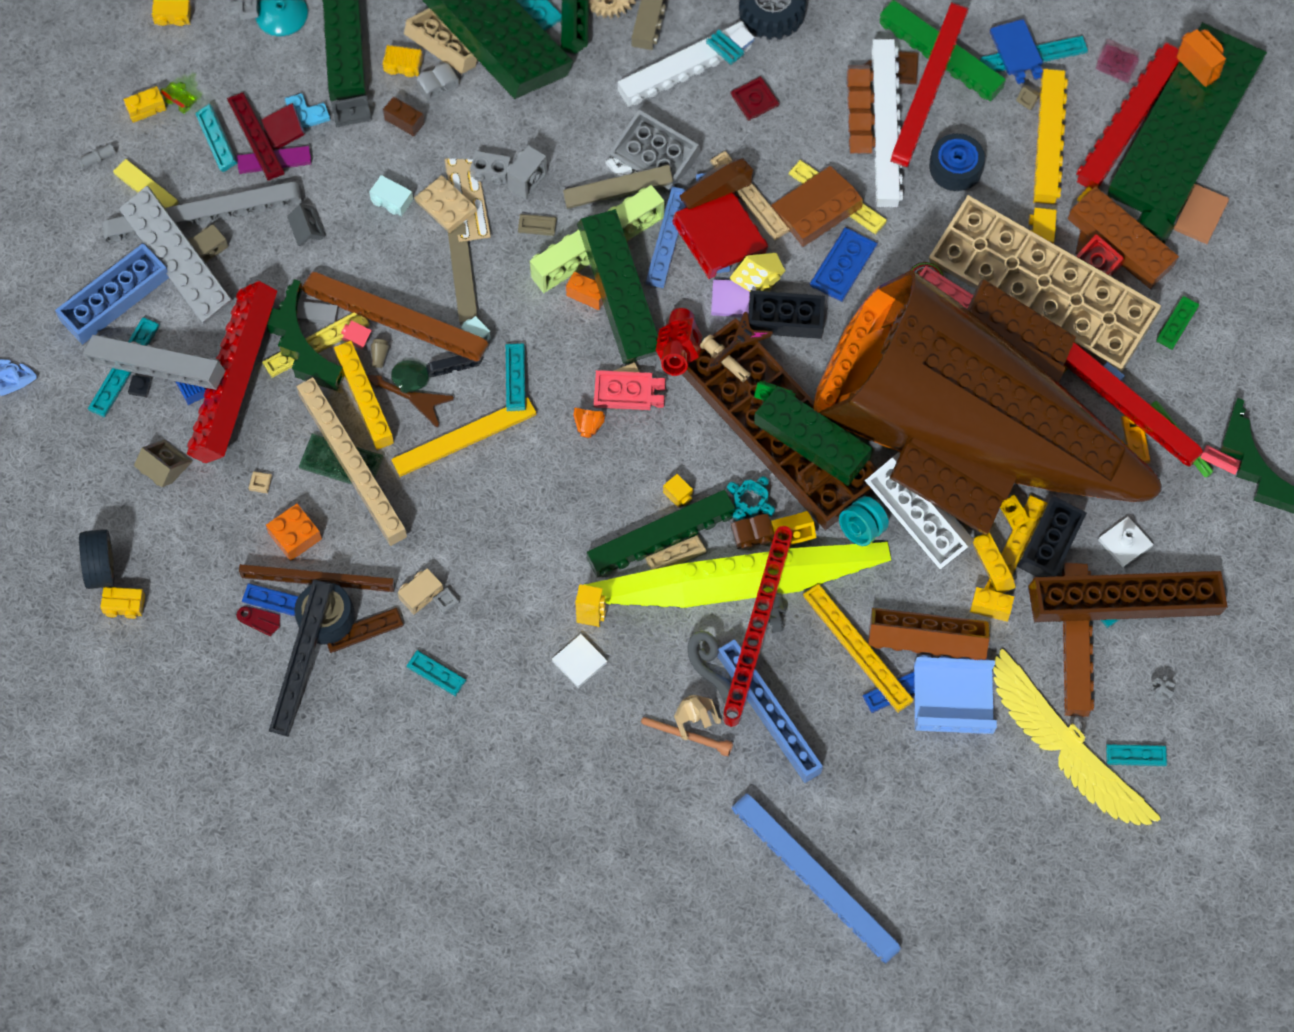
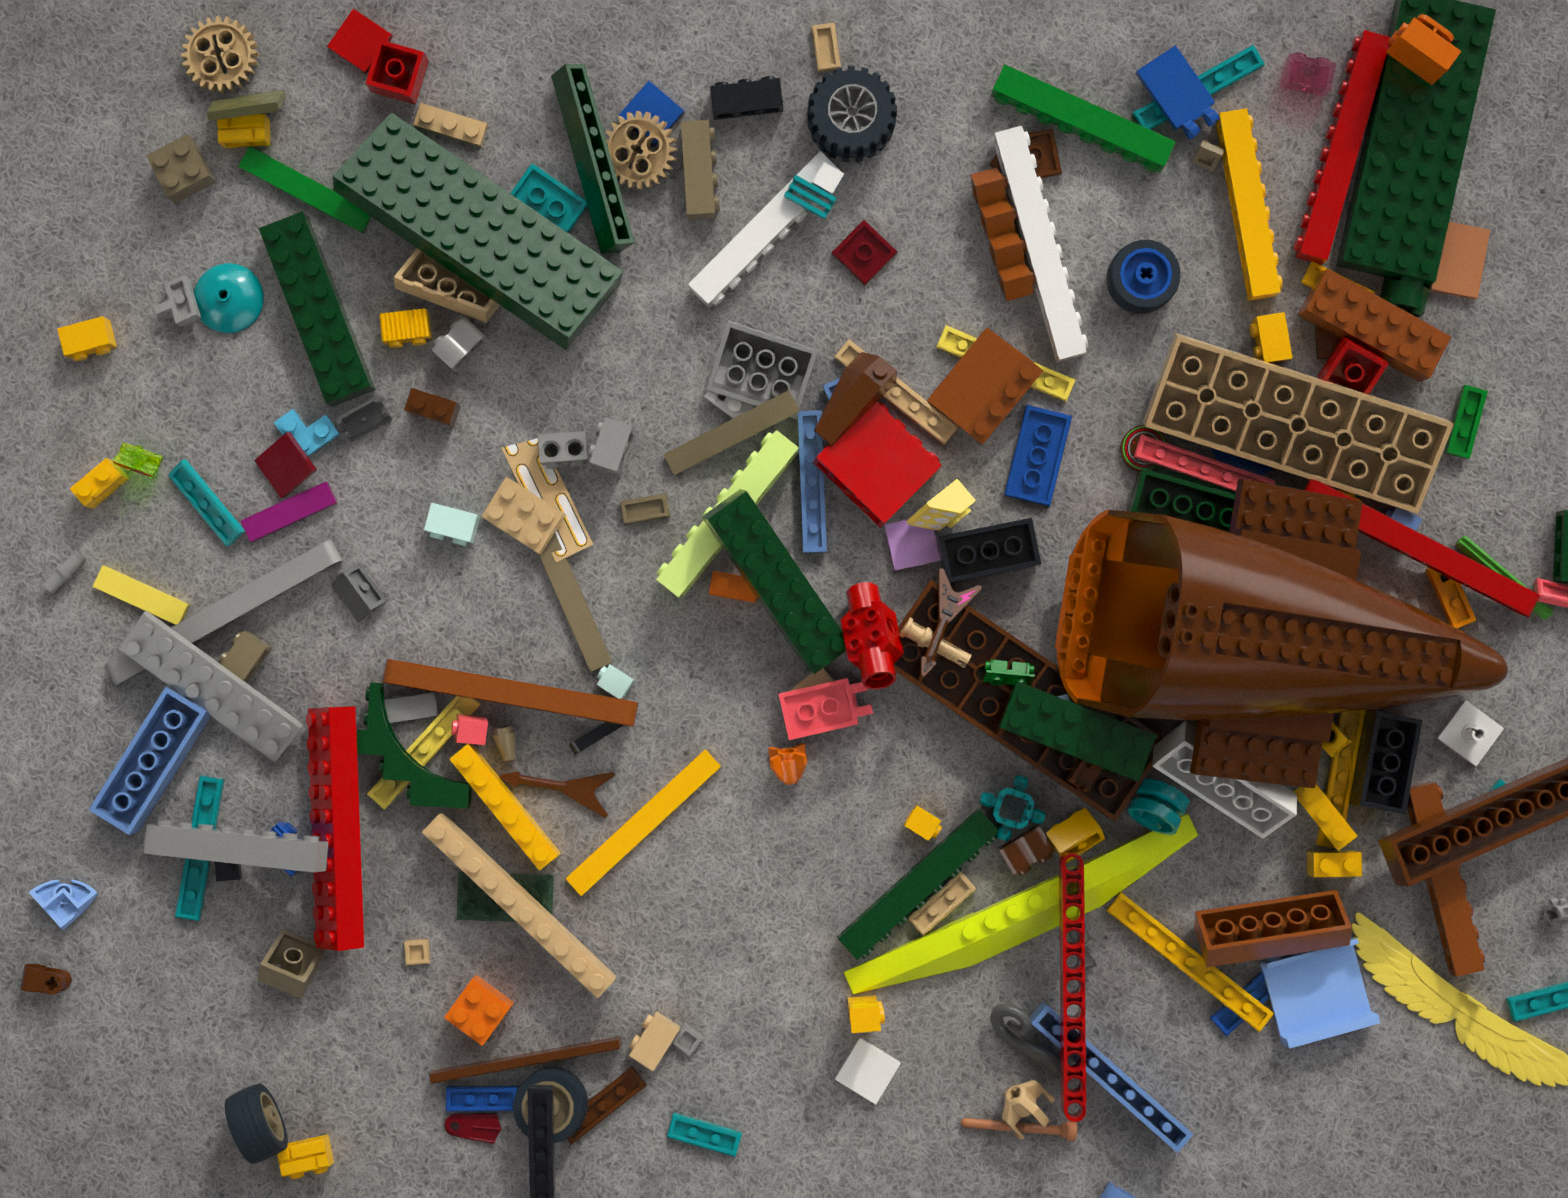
camera: 15 degrees left, 20 degrees up
(255, 136) = (254, 487): dark red tile -> none
(409, 376) = (552, 762): clear green dish -> none
(515, 377) = (681, 726): teal tile -> none
(929, 85) = (1084, 180): red beam -> none

